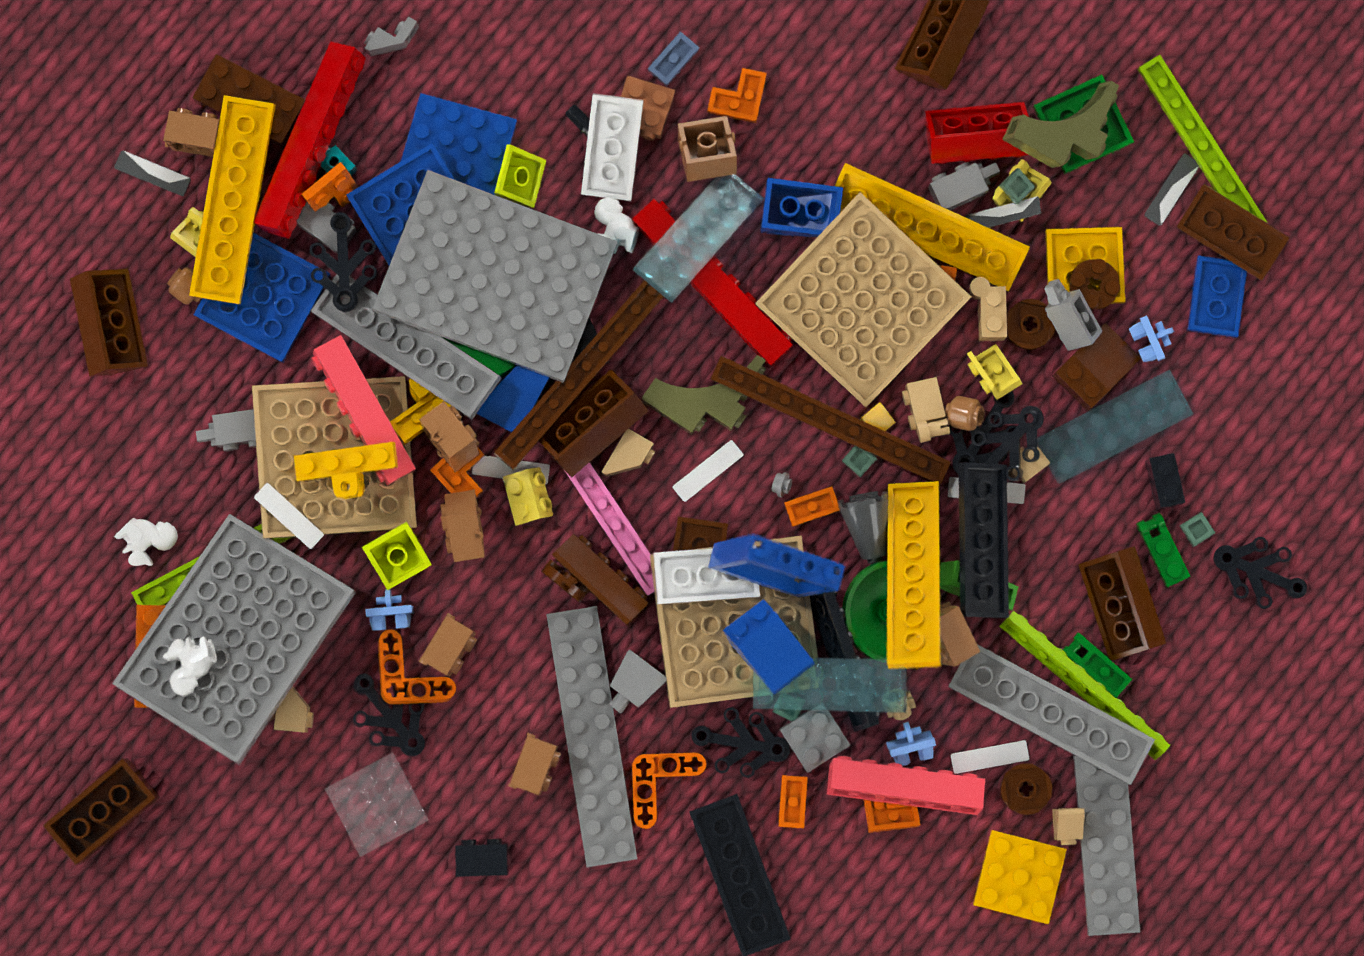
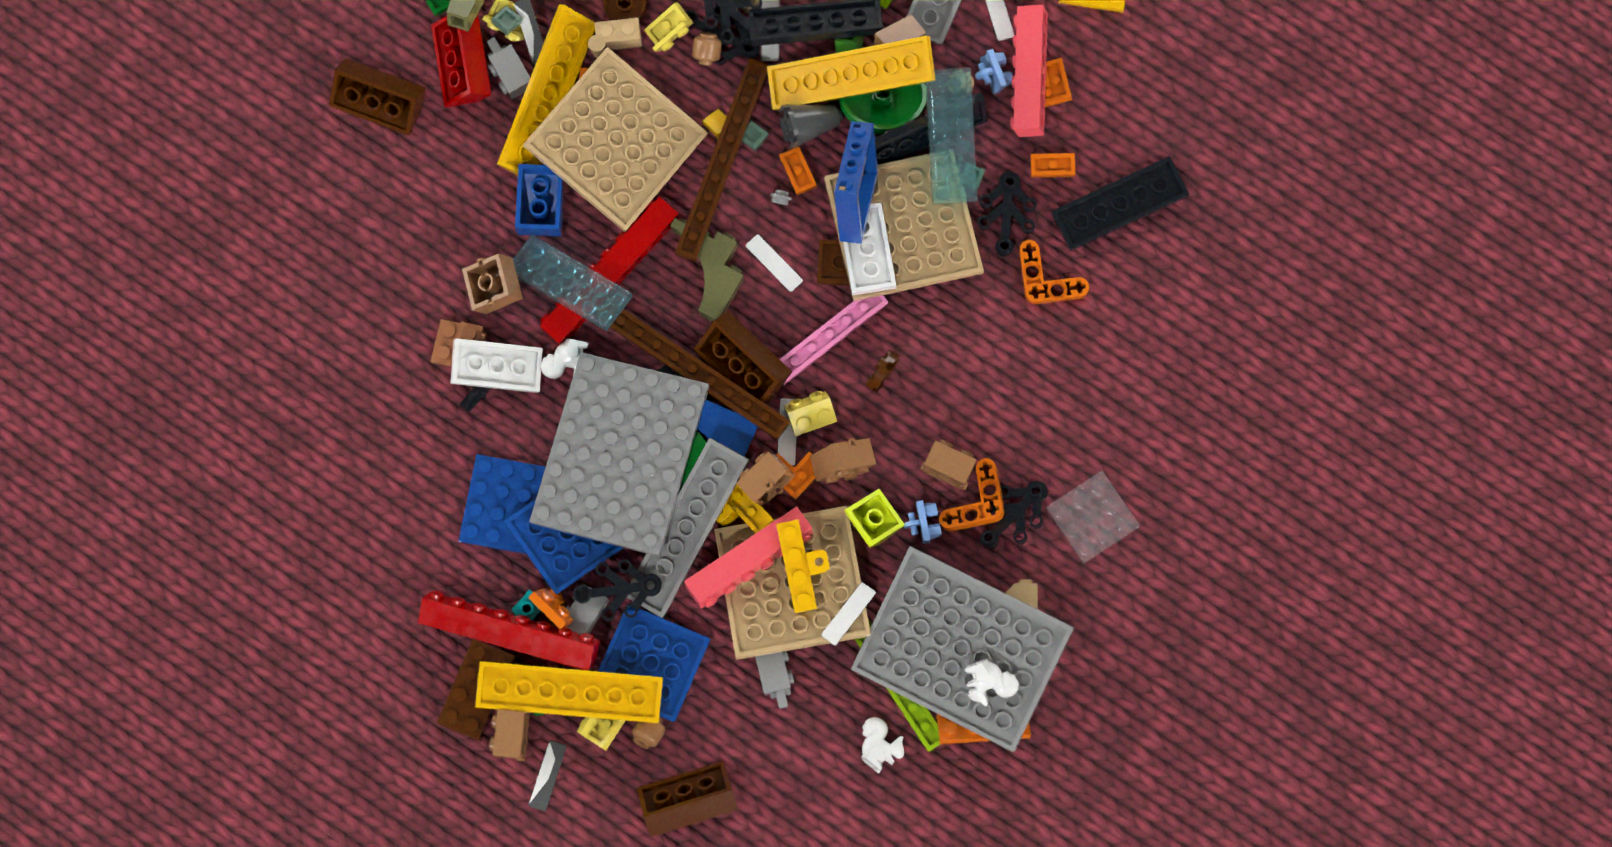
camera: 90 degrees left, 5 degrees down
(101, 811) = (1125, 756): reddish brown brick -> none
(382, 42) = (414, 576): light grey slope -> none
(481, 859) = (1130, 421): black brick -> none
(520, 176) = (528, 446): neon yellow slope -> none
(534, 765) = (1045, 381): medium nougat brick -> none
(591, 736) = (1014, 339): light grey plate -> none
(600, 579) = (881, 337): reddish brown slope -> none
(629, 454) = (766, 328): tan slope -> none
(635, 682) = (963, 305): light grey torso -> none
(673, 59) = (413, 323): sand blue plate -> none
(741, 104) = (448, 259): orange plate -> none
(768, 647) = (924, 188): blue slope -> none
(814, 738) = (997, 152): light grey plate -> none
(926, 409) = (706, 82): tan hinge -> none

